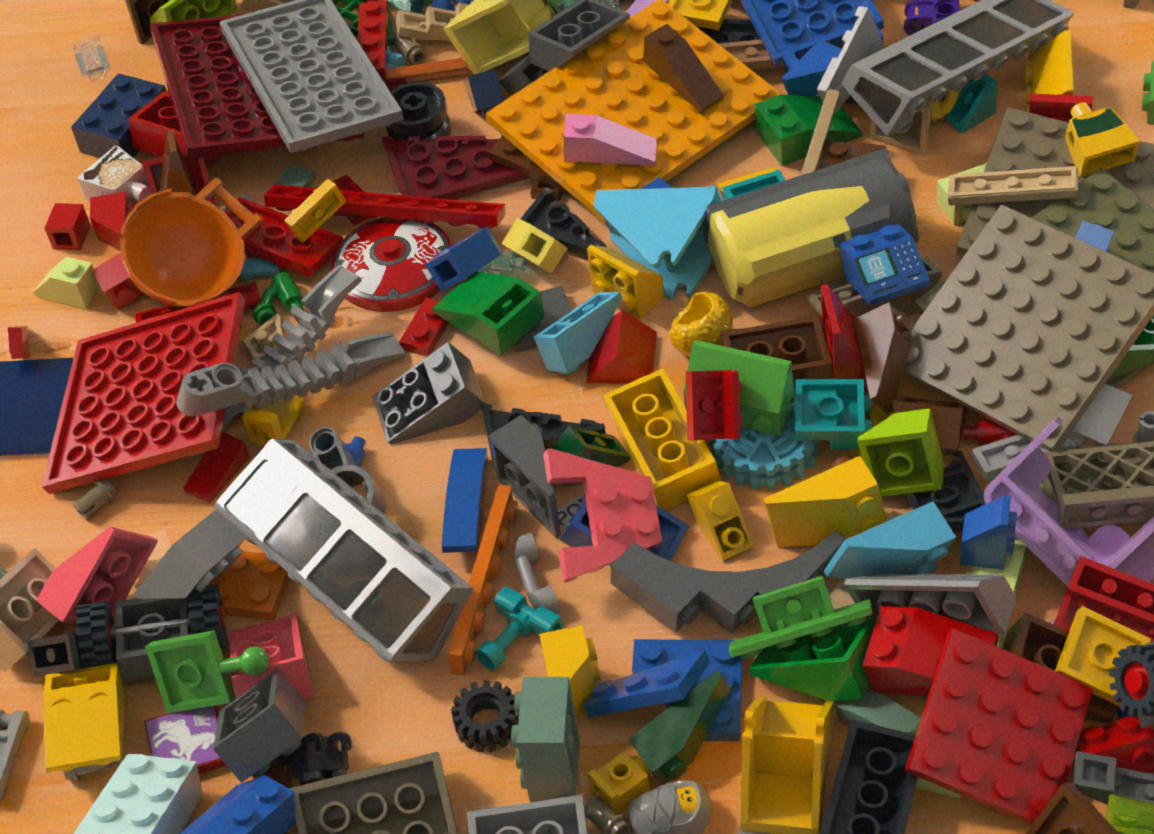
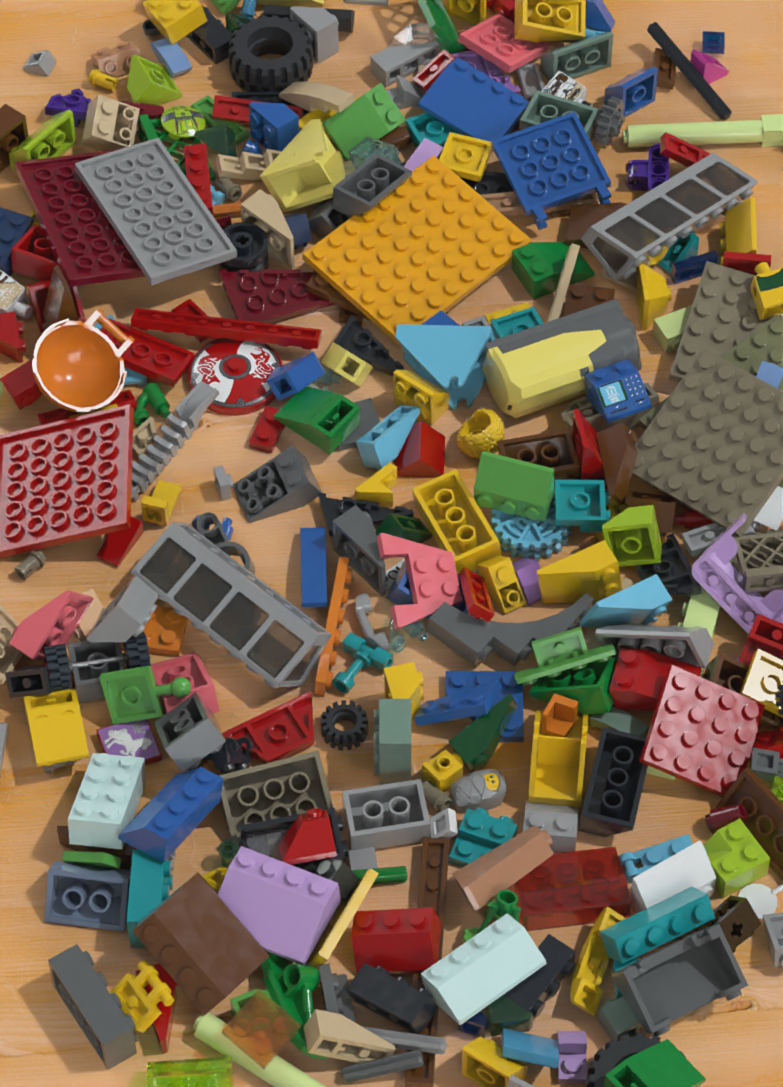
camera: 10 degrees left, 5 degrees up
(226, 386) = (137, 481): light grey piece -> none
(297, 177) = (148, 300): sand green tile -> none
(315, 210) = (175, 334): yellow plate -> none
(359, 392) = (223, 482): none -> light grey plate
(394, 723) = (278, 731): none -> red wing
(445, 70) = (265, 212): none -> tan slope
(562, 394) = (379, 486): none -> yellow slope
(595, 582) = (398, 641): none -> clear light blue plant
(603, 141) = (401, 282): bright pink slope -> none
(680, 67) = (452, 216): reddish brown slope -> none
(680, 534) = (476, 595): none -> red plate
(713, 405) = (497, 500): red bracket -> none
(755, 515) = (527, 577): none -> medium lavender slope
(790, 704) = (559, 716): none -> orange panel
(809, 70) = (561, 222): blue slope -> none
(859, 44) = (594, 209): light grey wing -> none
(934, 153) = (651, 295): none -> yellow slope
(986, 120) = (692, 266): none -> clear blue plate
(986, 534) = (695, 597): blue slope -> none
(1013, 185) = (711, 328): tan tile -> none

